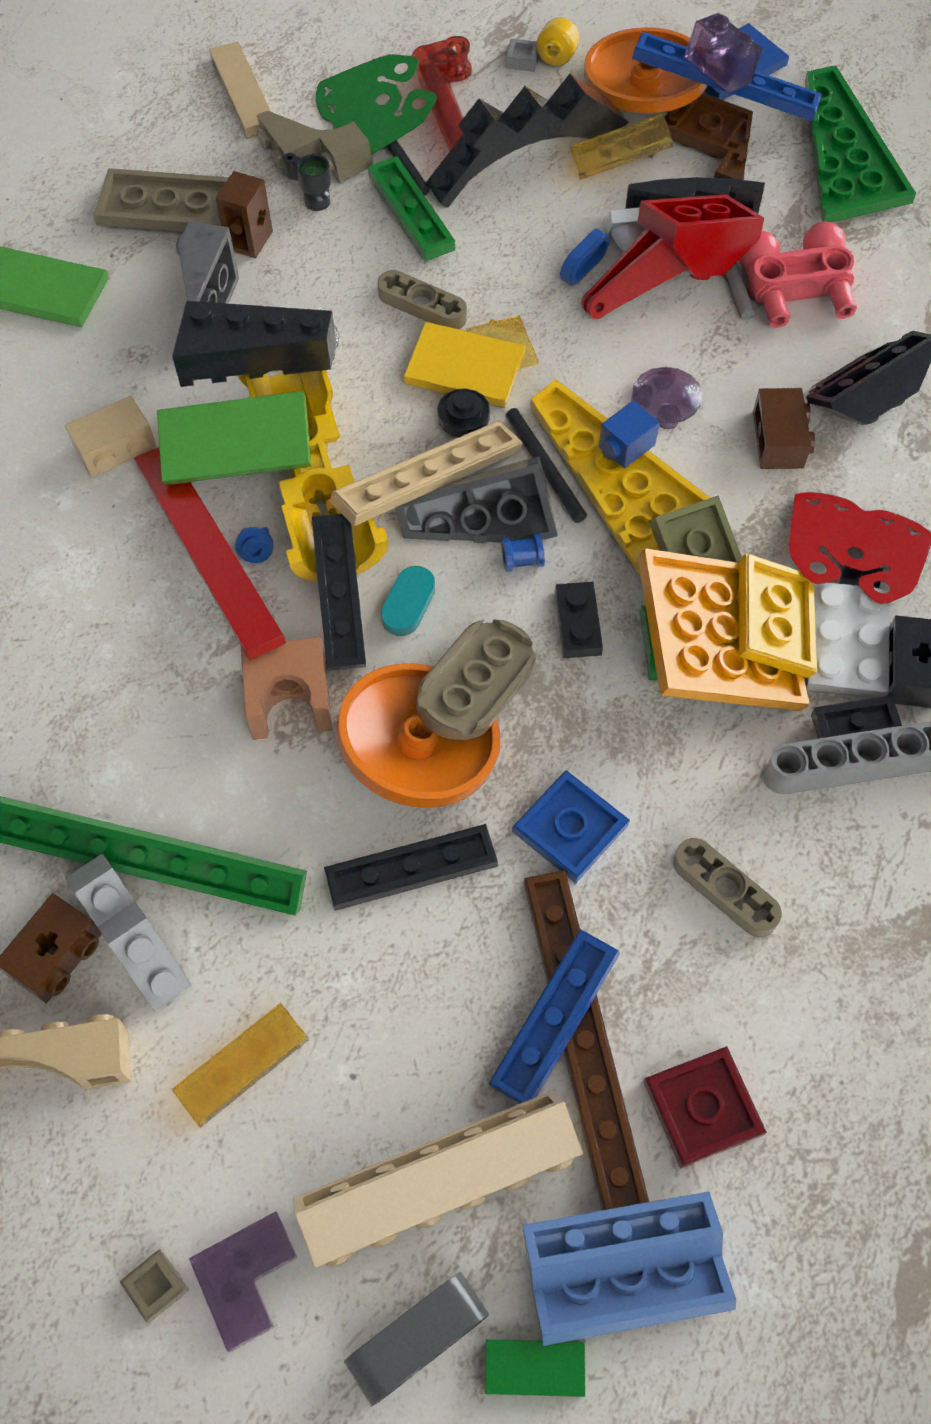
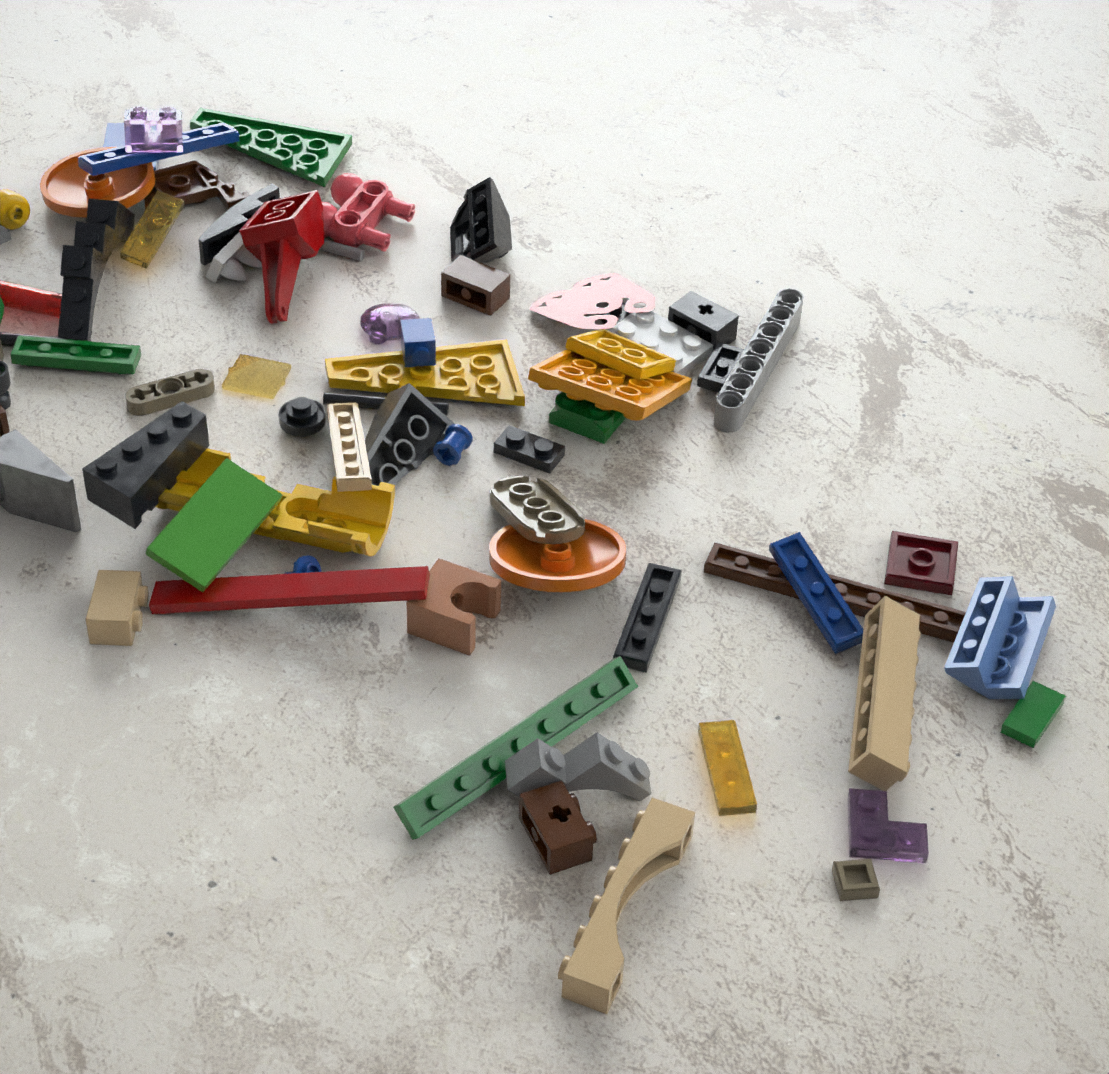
camera: 60 degrees left, 20 degrees down
(338, 592) = (394, 533): black plate -> none
(408, 600) = (433, 520): teal tile -> none
(416, 1338) = (981, 755): dark grey beam -> none
(462, 359) = (253, 398): yellow tile -> none
(570, 826) = (682, 527): blue tile -> none
(584, 257) = (230, 295): blue tile -> none
(697, 531) = (521, 353): olive plate -> none
(758, 897) = (806, 477): dark tan beam -> none

